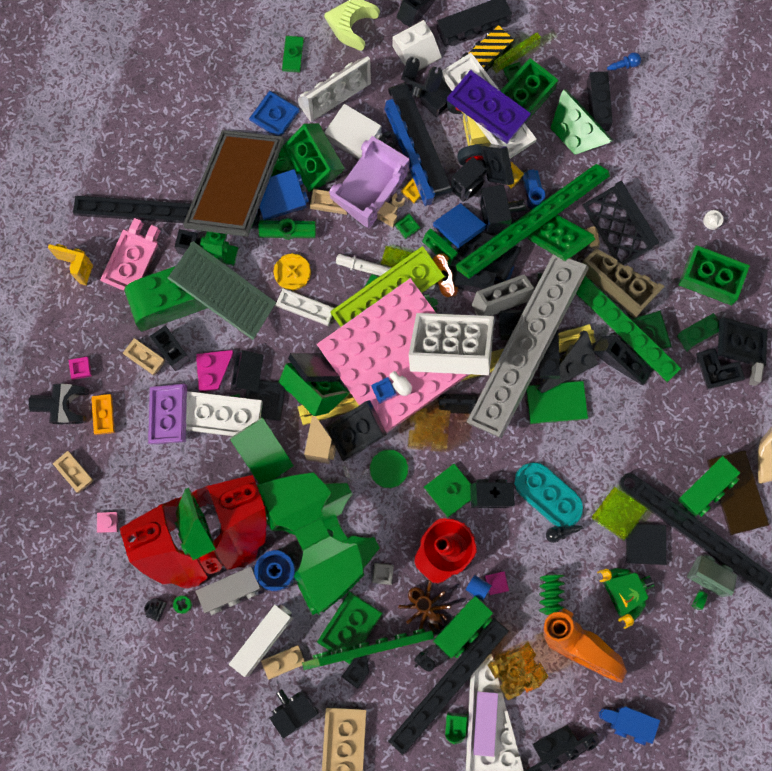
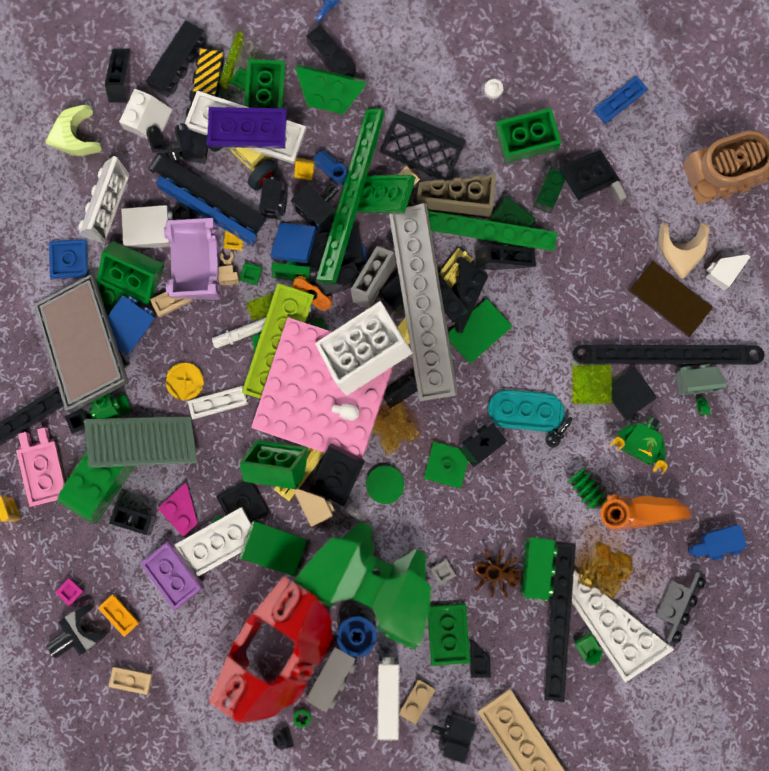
camera: 35 degrees left, 5 degrees up
(107, 522) = (190, 699): bright pink plate -> none
(144, 357) = (116, 543): tan plate -> none
(193, 527) = (268, 655): green slope -> none
(246, 371) = (210, 491): black panel -> none
(292, 54) = (44, 196): green plate -> none
(300, 229) = (143, 356): green piece -> none
(313, 367) = (263, 449): black tile -> none
(364, 649) = (473, 647): green wing -> none
(384, 390) = (335, 426): blue tile -> none
(424, 661) = (527, 617): black hinge -> none
(445, 550) = (479, 517): red piece -> none
(478, 587) = (527, 528): blue piece -> none
(485, 724) = (610, 629): lavender tile -> none
(497, 164) = (289, 170): black tile -> none
(498, 583) = (537, 511): dark pink plate -> none
(709, 487) = (648, 312): green brick -> none
(715, 374) = (586, 216): black brick -> none

